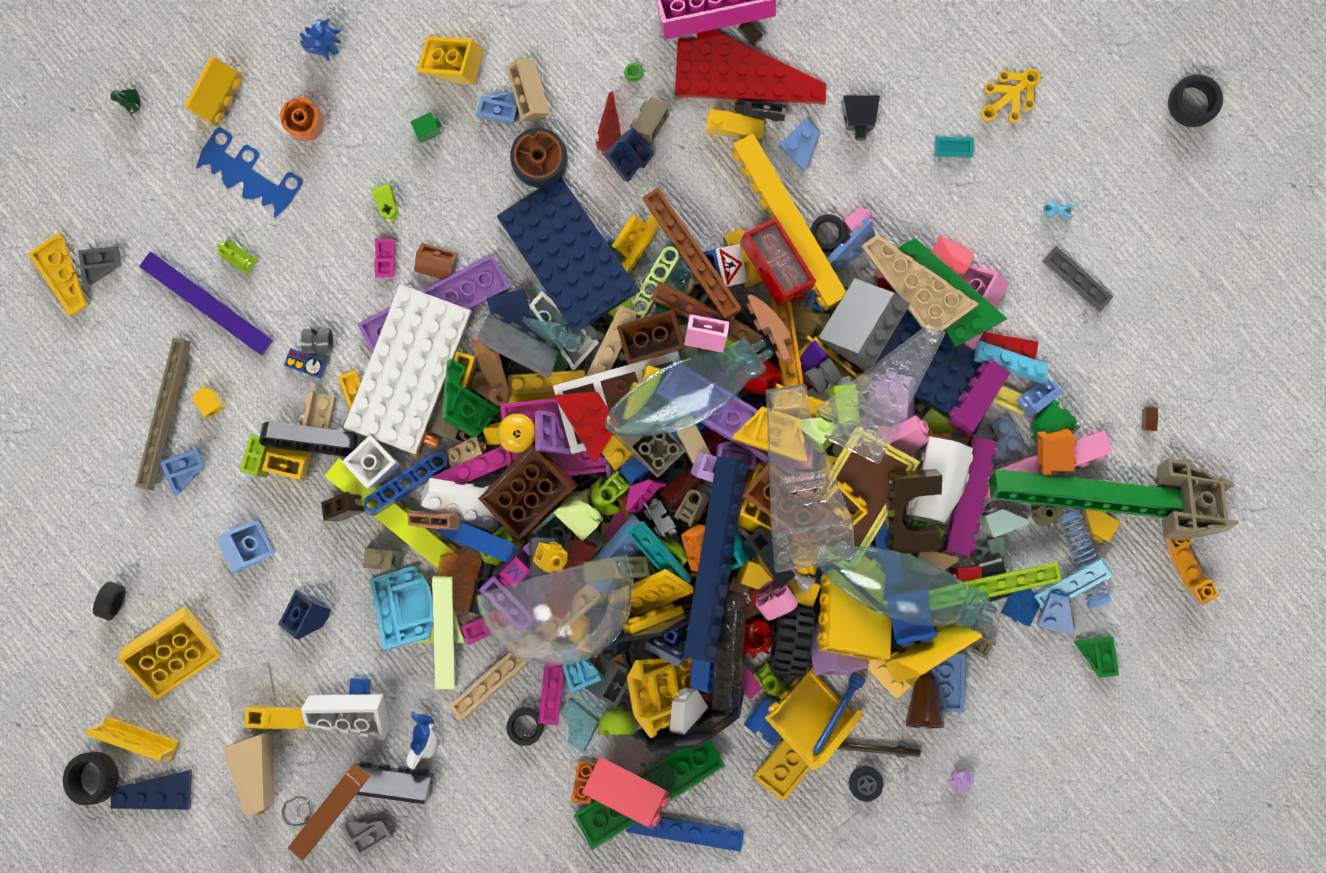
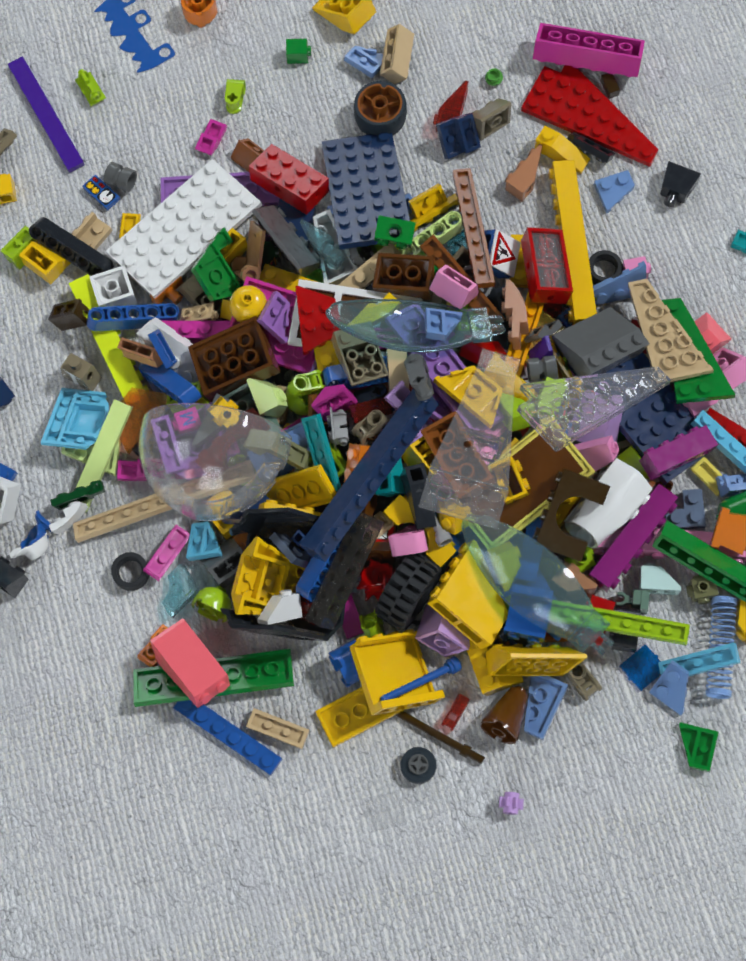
camera: 30 degrees right, 15 degrees down
(443, 679) = (79, 494): none -> dark green hinge
(446, 695) = (72, 514): none -> white slope
(455, 512) = (162, 348): none -> blue tile
(487, 275) = (289, 179): none -> red brick
(611, 294) = (404, 227): none -> green brick
(711, 377) = (440, 323): none -> medium blue wing
(712, 168) = (523, 179): none -> nougat slope
(719, 445) = (419, 376): none -> dark grey piece
(728, 808) = (277, 728): none -> tan plate
(807, 332) = (544, 330): none -> dark grey slope
(877, 717) = (457, 709): none -> clear red bar

